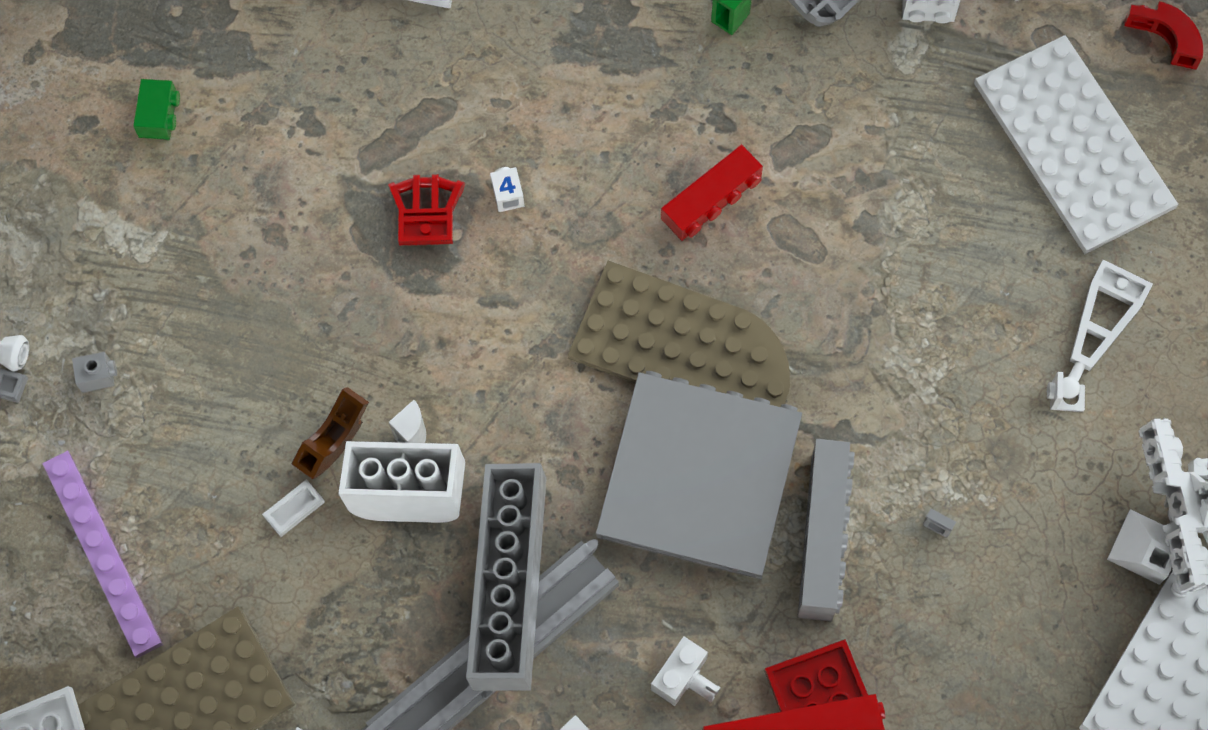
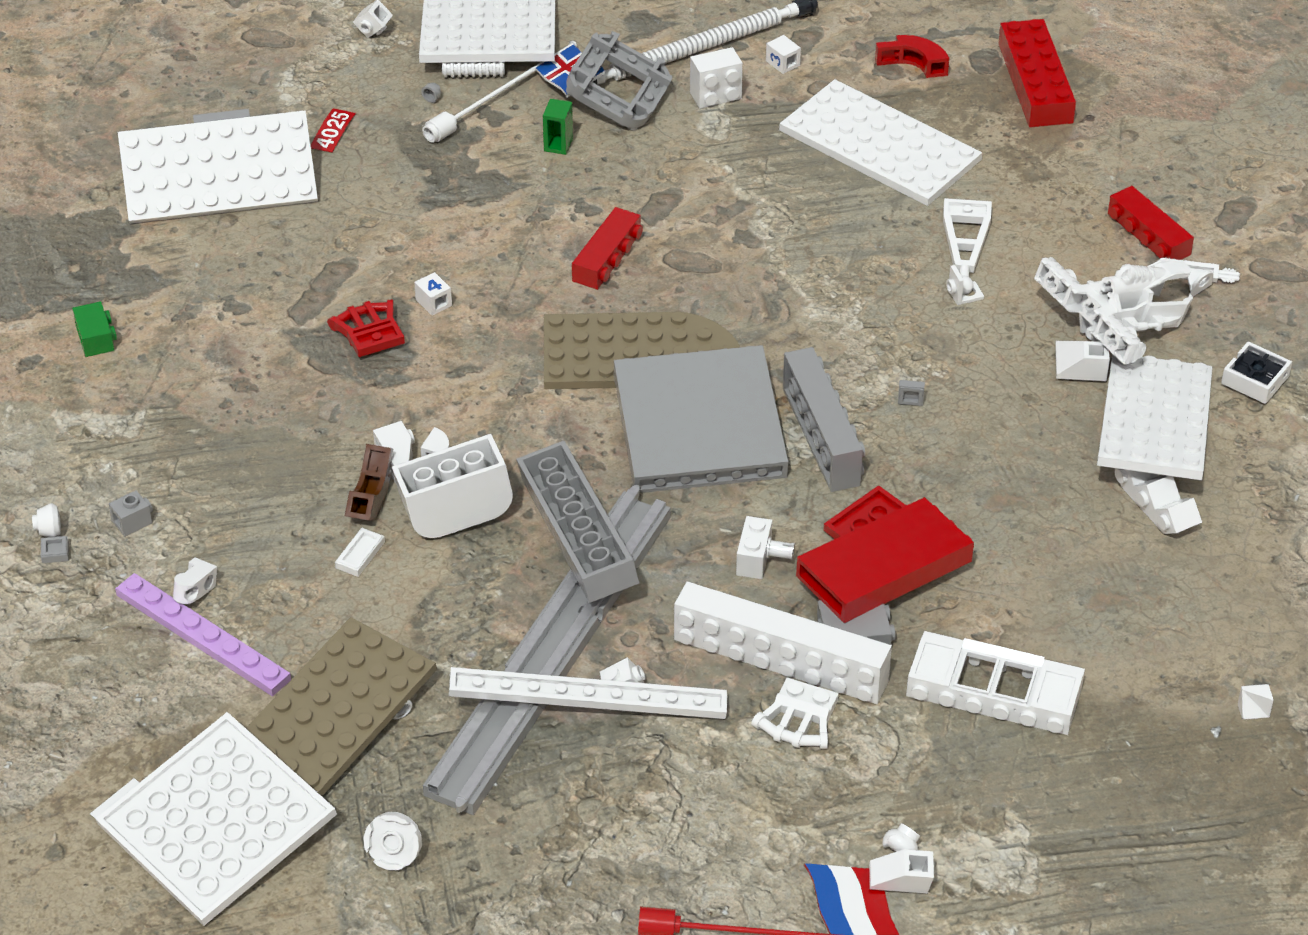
camera: 25 degrees left, 25 degrees down
(116, 491) = (193, 583): none -> white leg
(382, 392) = (397, 438): none -> white slope

